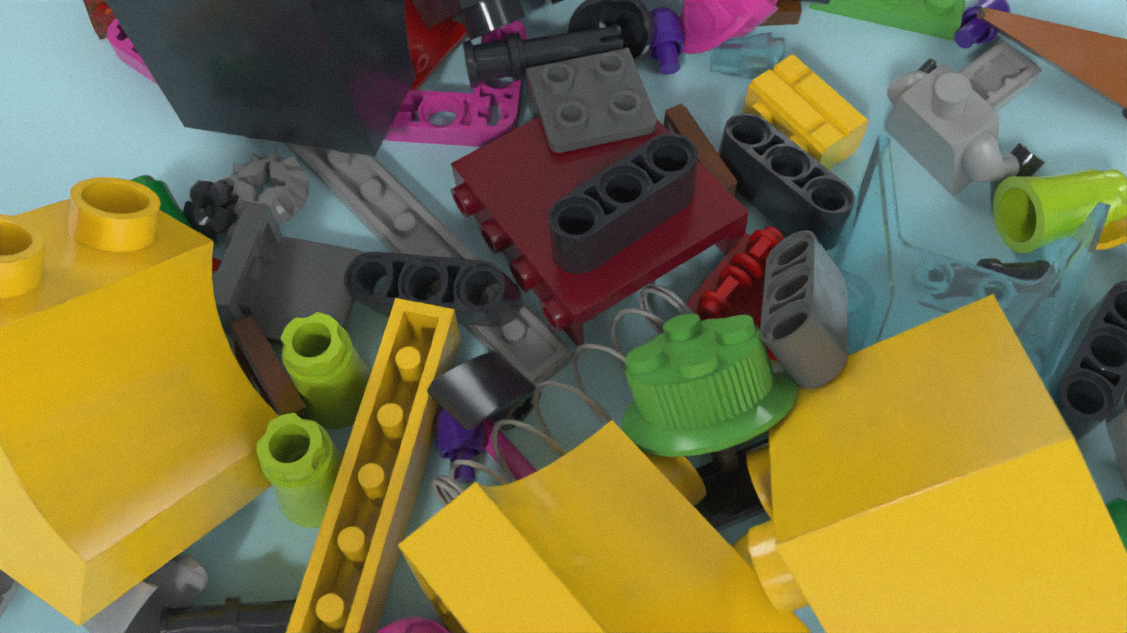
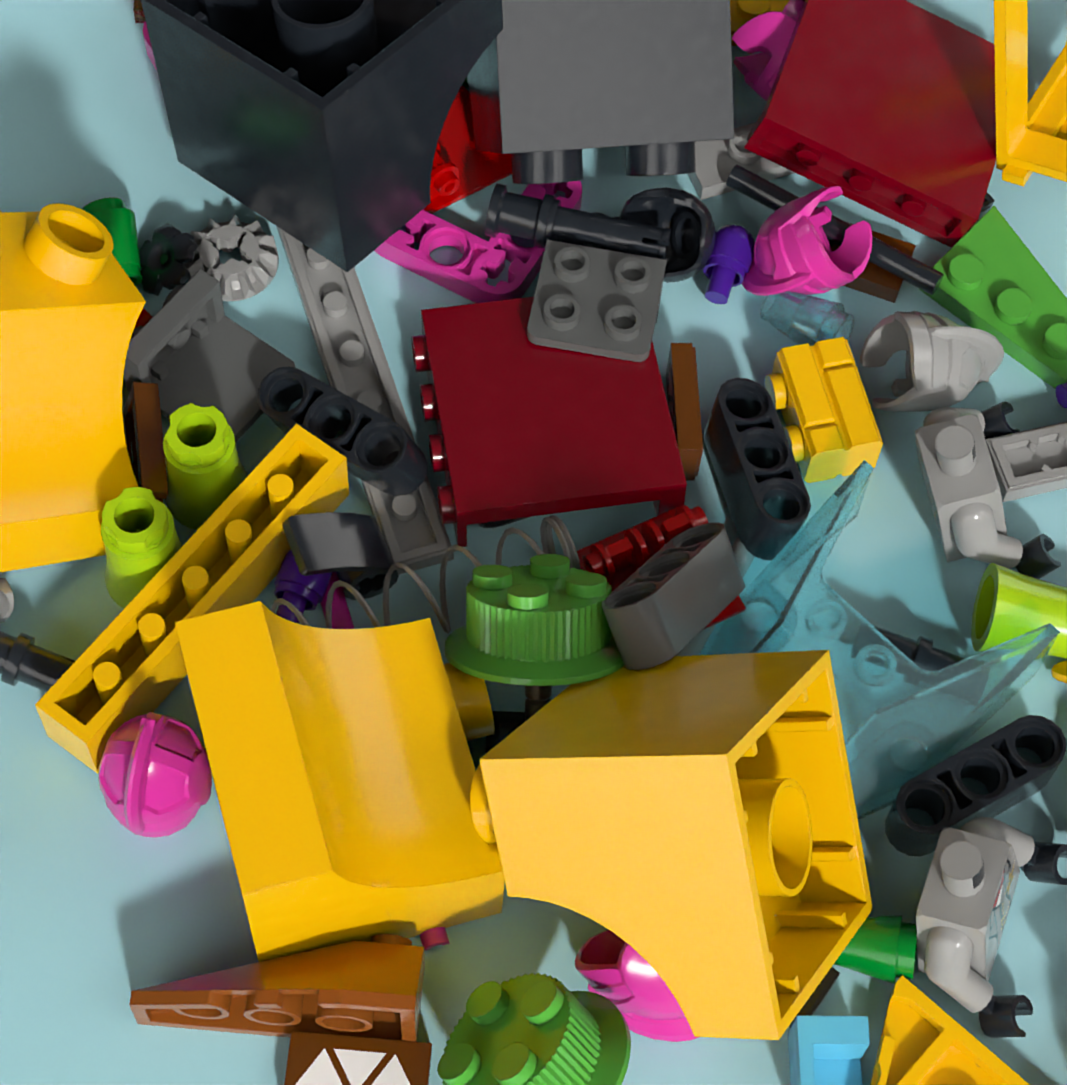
camera: 20 degrees right, 0 degrees up
(623, 203) = (528, 417): black beam -> none
(863, 44) = (940, 362): none -> light grey helmet

